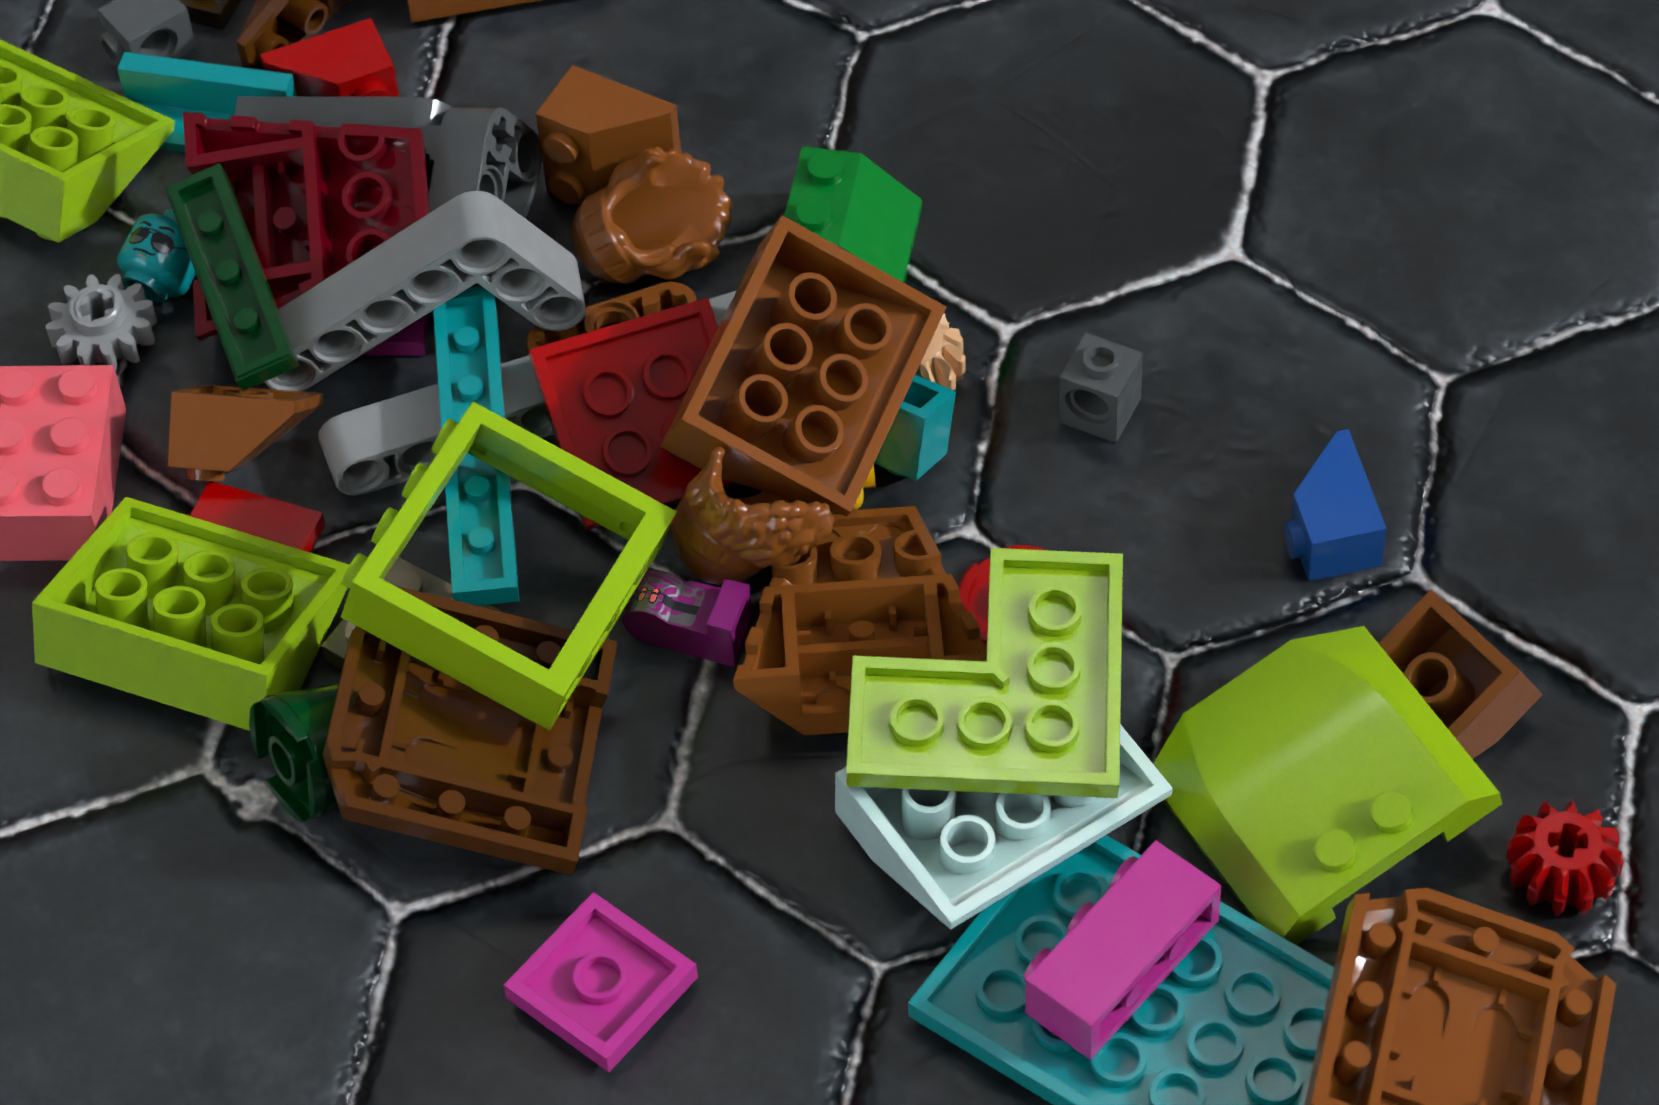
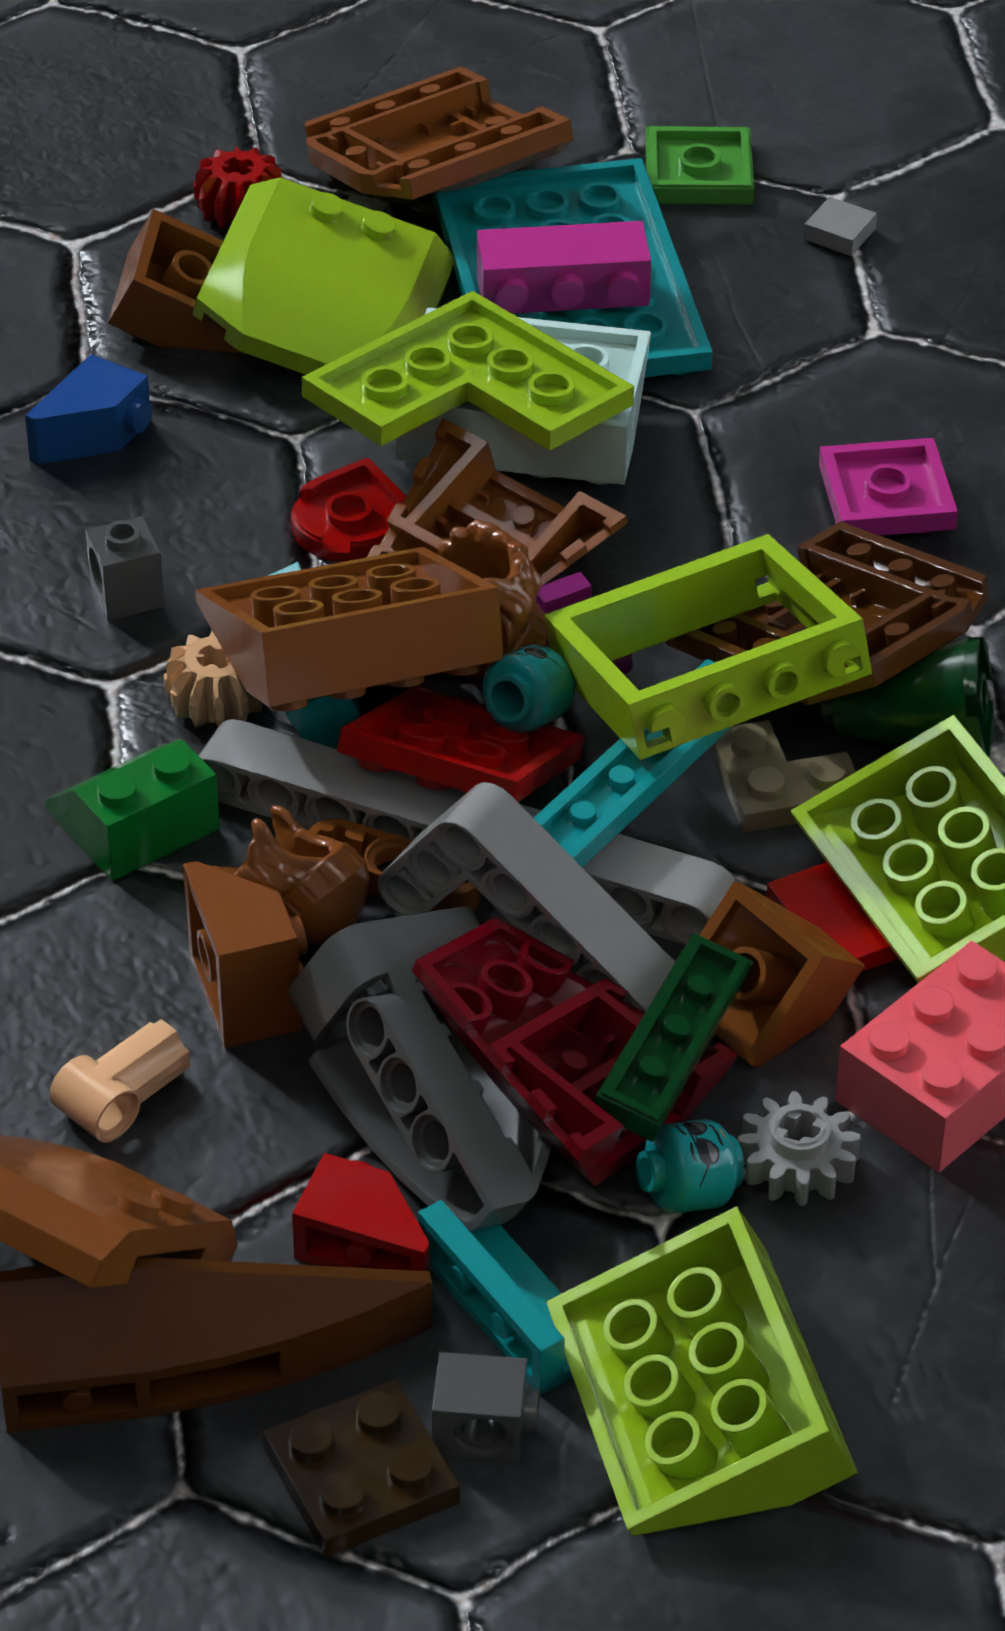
camera: 140 degrees left, 10 degrees down
(605, 37) = (108, 1091): none -> light nougat piece
(646, 467) = (528, 688): none -> teal head

